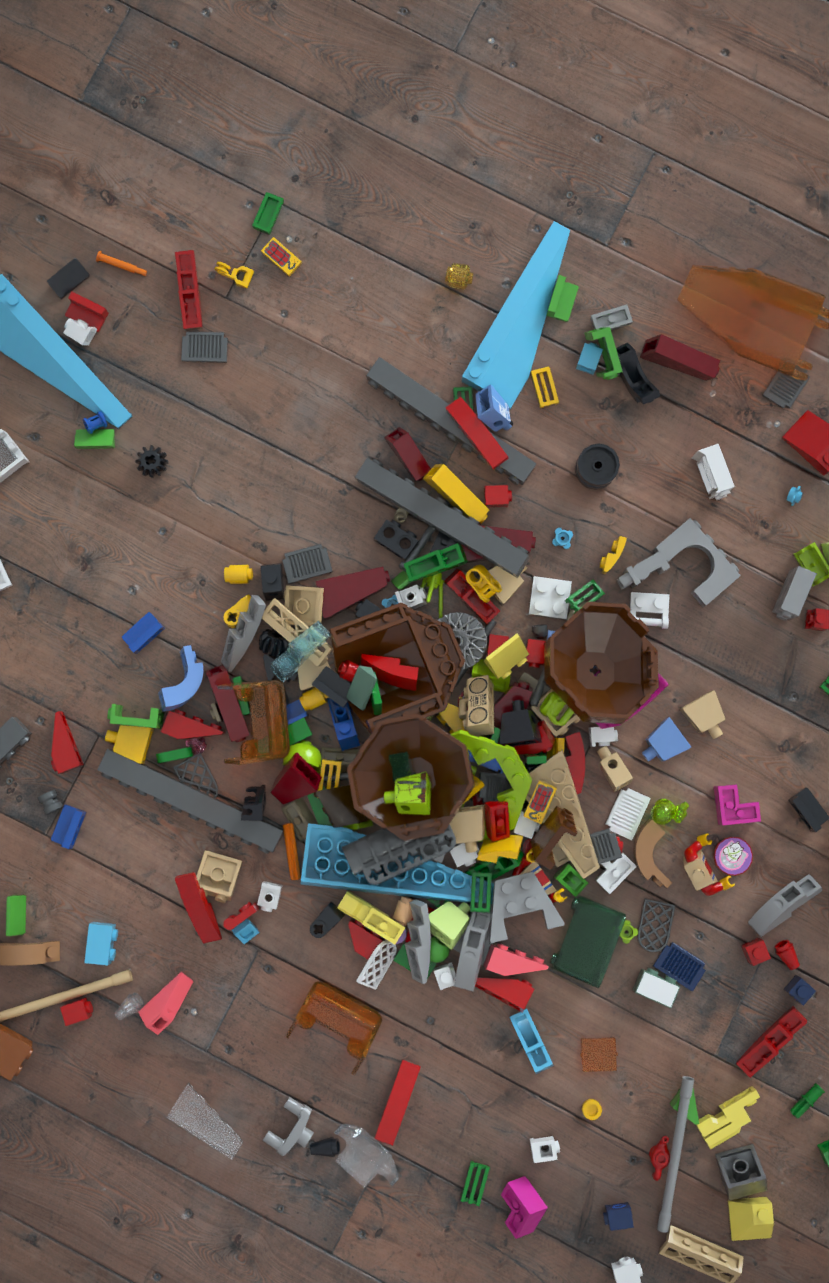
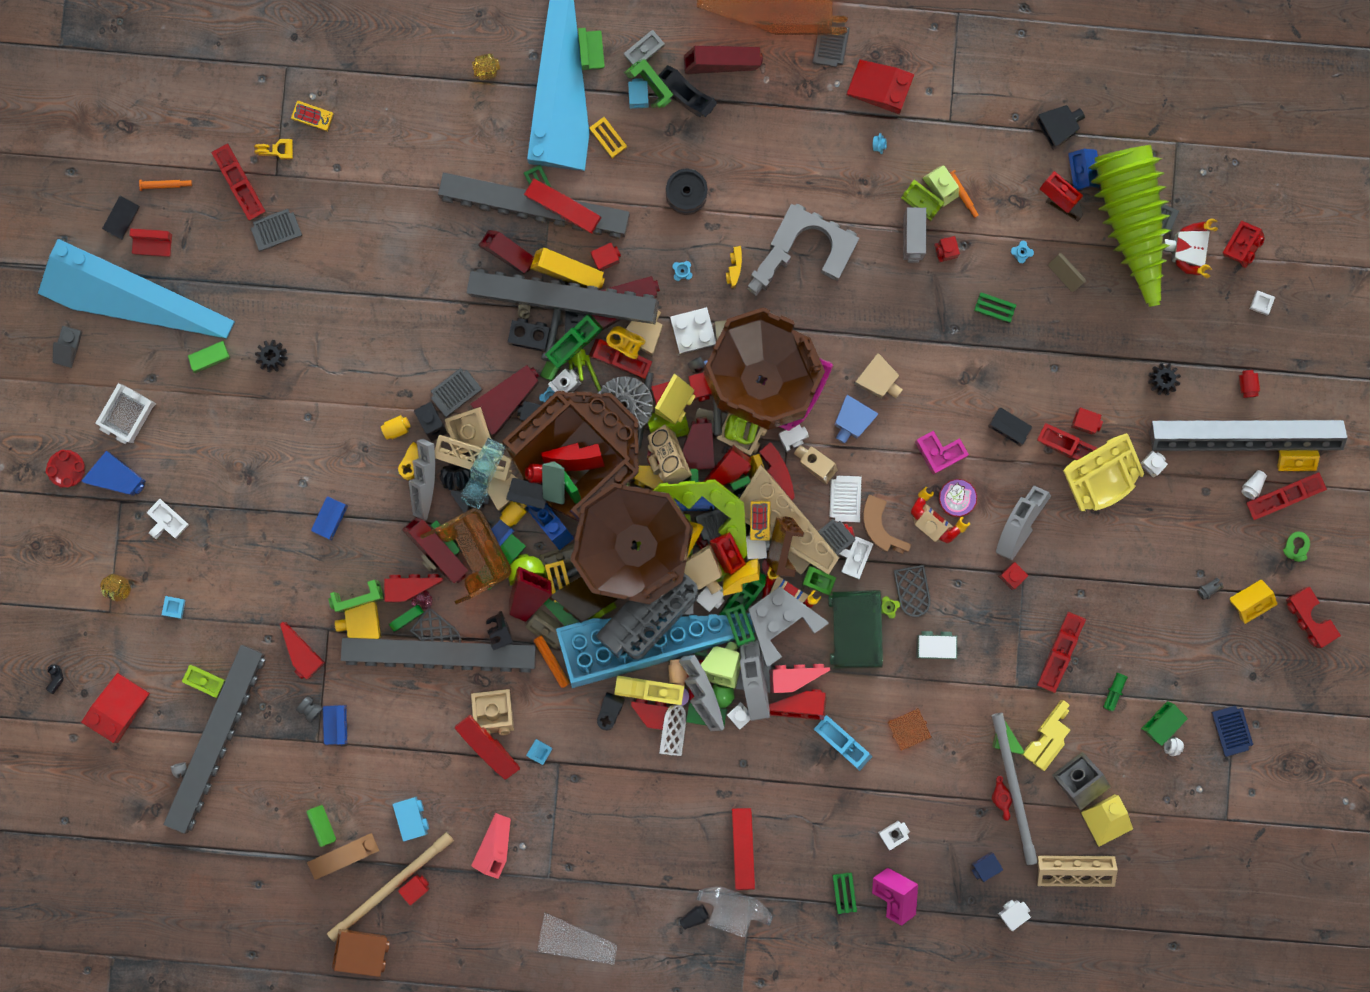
camera: 25 degrees left, 0 degrees up
(79, 331) = (152, 262): white brick -> none
(95, 422) = (203, 341): blue bush -> none
(129, 1006) = (461, 864): clear cone -> none
(178, 695) = (387, 561): medium blue arch -> none
(245, 912) = (532, 733): red plate -> none
(268, 213) = (282, 80): green tile -> none
(272, 889) = (550, 703): white brick -> none
(299, 1133) = (665, 914): light grey connector -> none
(342, 1016) = (658, 792): clear orange windscreen -> none
(401, 765) = (620, 540): clear green panel -> none
(411, 794) = (638, 559): lime torso -> none
(493, 409) = (568, 178): medium blue torso -> none
(519, 726) = (712, 459): black torso -> none
(591, 1109) = (923, 781): yellow tile -> none
(596, 588) = (717, 328): green tile -> none
(651, 604) = (787, 298): white plate -> none
(665, 811) = (878, 482): clear neon green piece -> none
(680, 965) = (951, 617): dark blue window -> none
(714, 472) = (796, 152): white window -> none
(787, 954) = (1043, 566): red cone -> none
(799, 990) = (1067, 594): dark blue brick -> none

